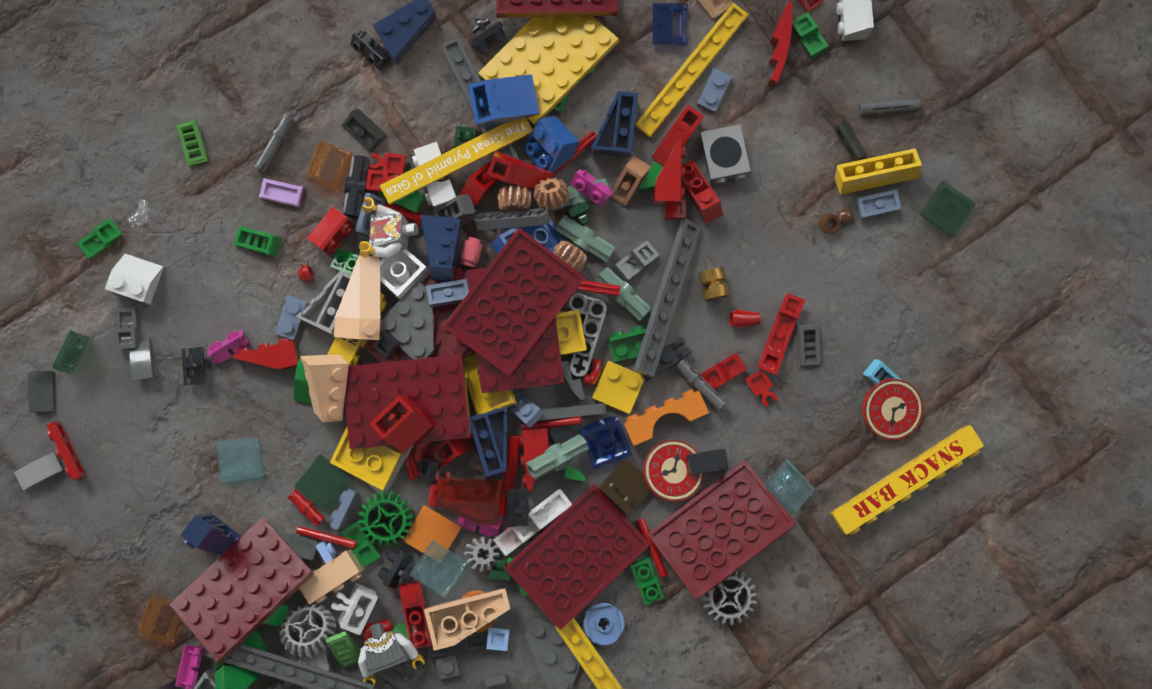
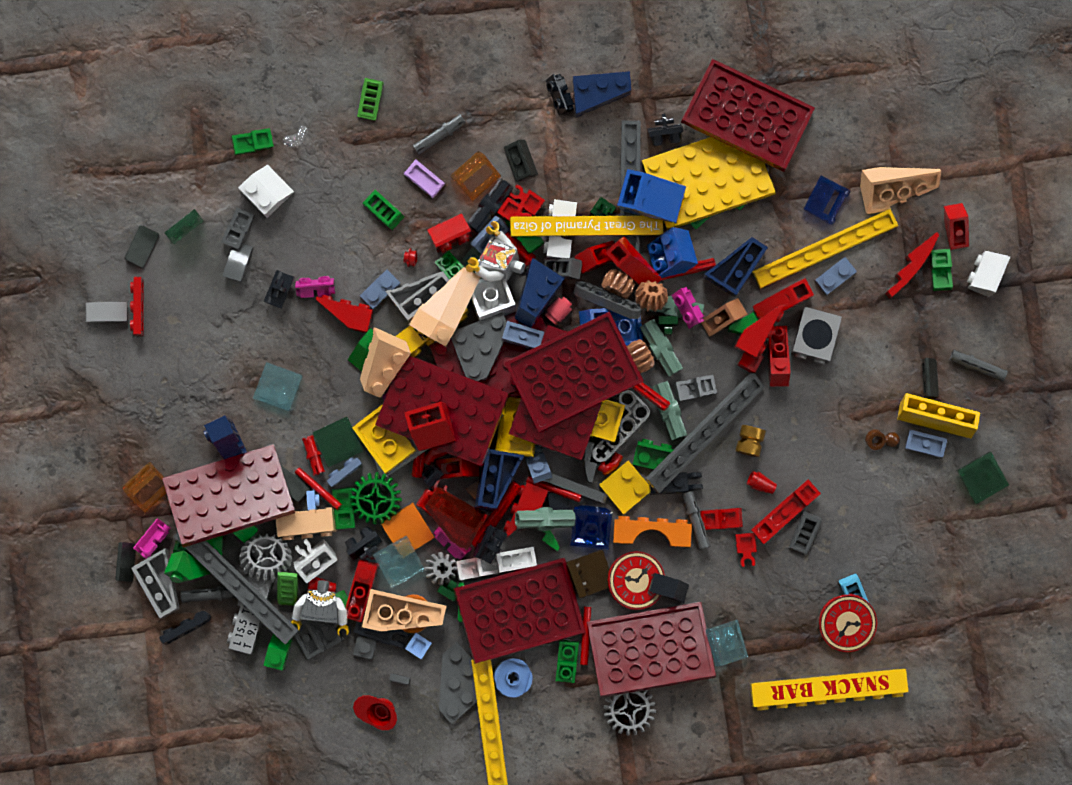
camera: 25 degrees right, 0 degrees up
(386, 344) = (449, 353): black tile -> none

